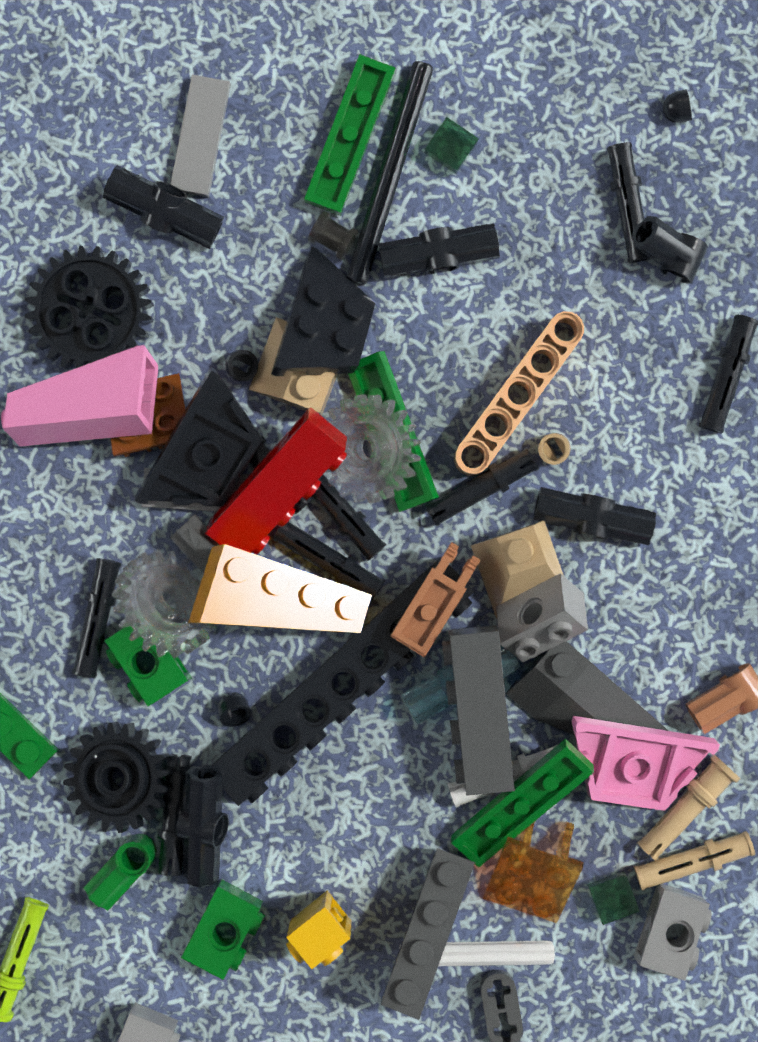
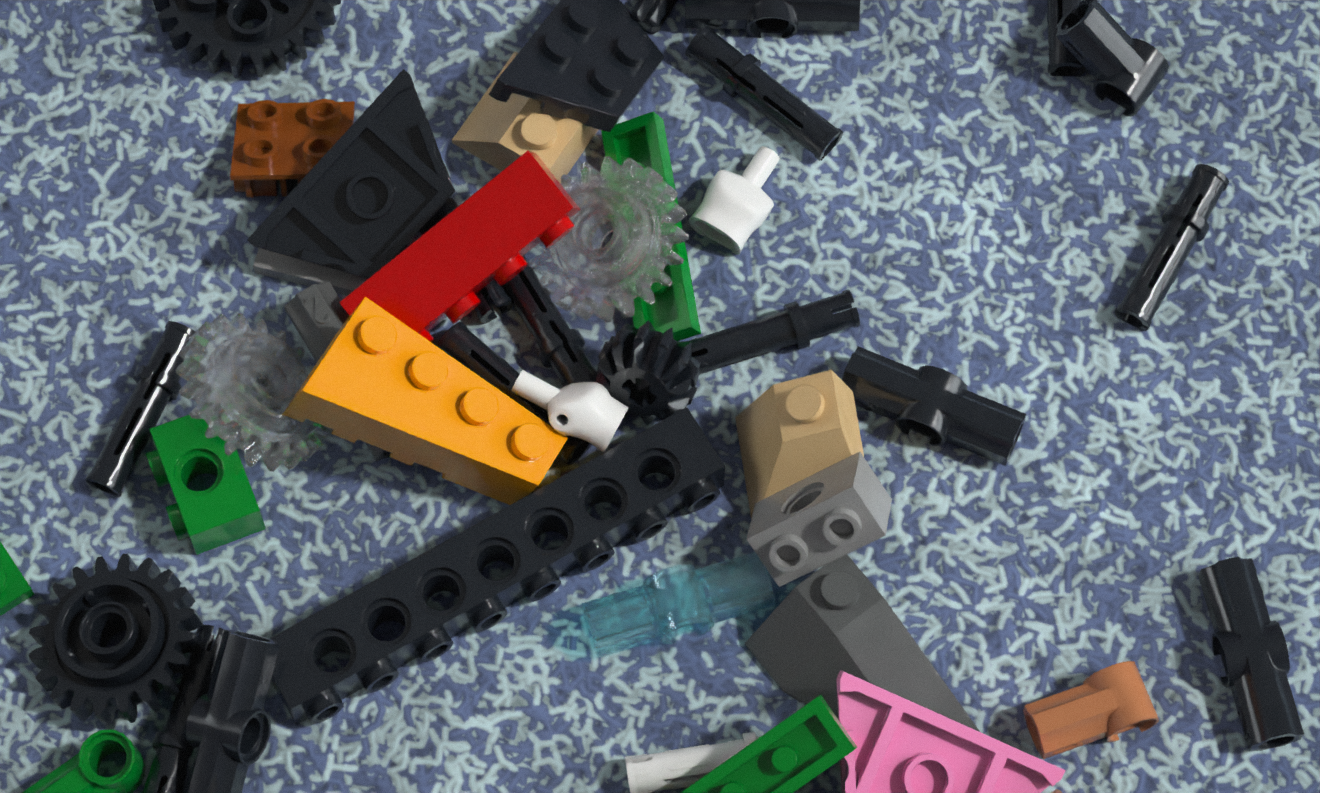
camera: 10 degrees right, 20 degrees down
(86, 403) = (208, 100): bright pink slope -> none
(236, 717) = (304, 584): black hinge -> none
(245, 357) = (455, 92): black hinge -> none
(373, 573) = (576, 409): none -> white piece
(412, 536) = (648, 371): none -> black gear
(433, 604) = (658, 461): nougat hinge -> none
(443, 398) = (736, 203): none -> white piece
(445, 316) = (745, 78): none -> black pin
(480, 710) = (696, 631): dark grey brick -> none
(531, 380) = (856, 189): light nougat beam -> none
(547, 453) = (878, 307): tan hinge -> none

